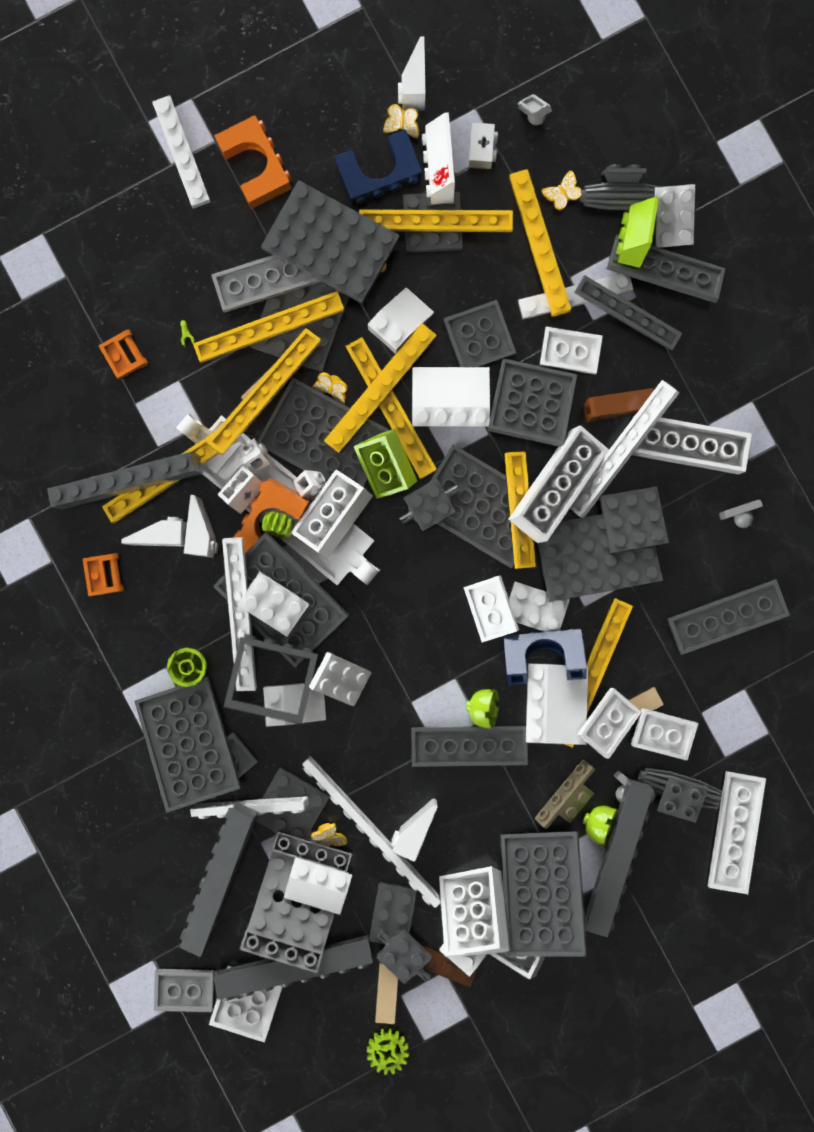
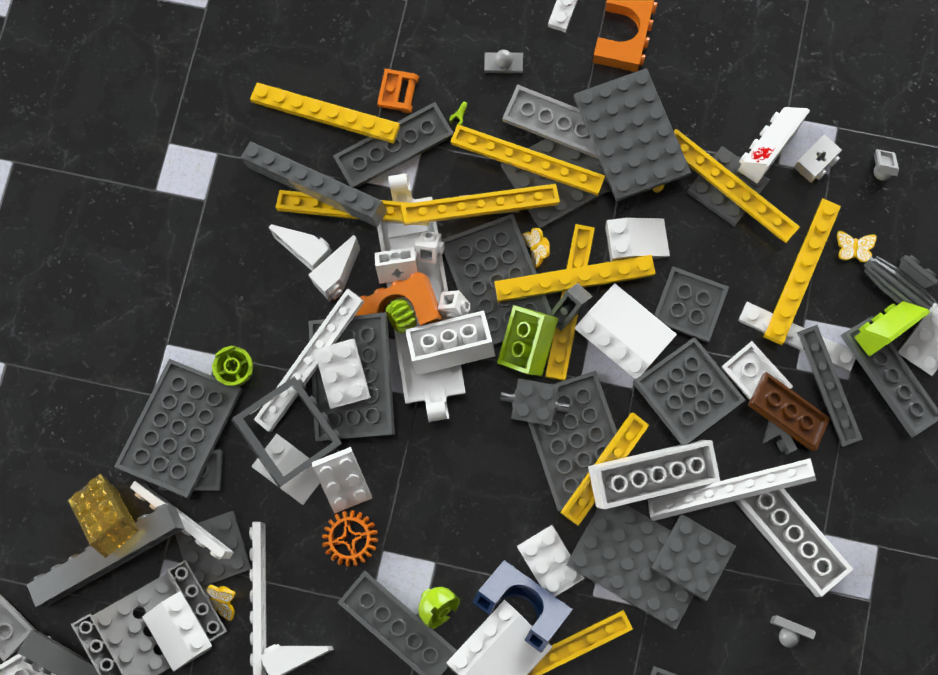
camera: 45 degrees right, 10 degrees down
(83, 418) = (325, 113): none -> yellow plate
(96, 574) = (229, 237): orange plate -> none
(158, 400) = (375, 157): none -> dark grey plate
(184, 265) = (503, 62): none -> light grey tile
(191, 854) = (103, 515): none -> clear yellow brick
(362, 187) = (739, 130): dark blue arch -> none
(371, 728) = (352, 548): none -> orange gear
(395, 411) = (570, 305): none -> dark grey slope
(402, 119) = (769, 88): yellow animal -> none
(412, 89) = (803, 65): white slope -> none
(491, 608) = (513, 529): white plate -> none
(615, 357) = (789, 411): none -> reddish brown tile
(615, 405) = (755, 449): dark orange slope -> none
(616, 377) = (784, 441): none -> dark grey slope

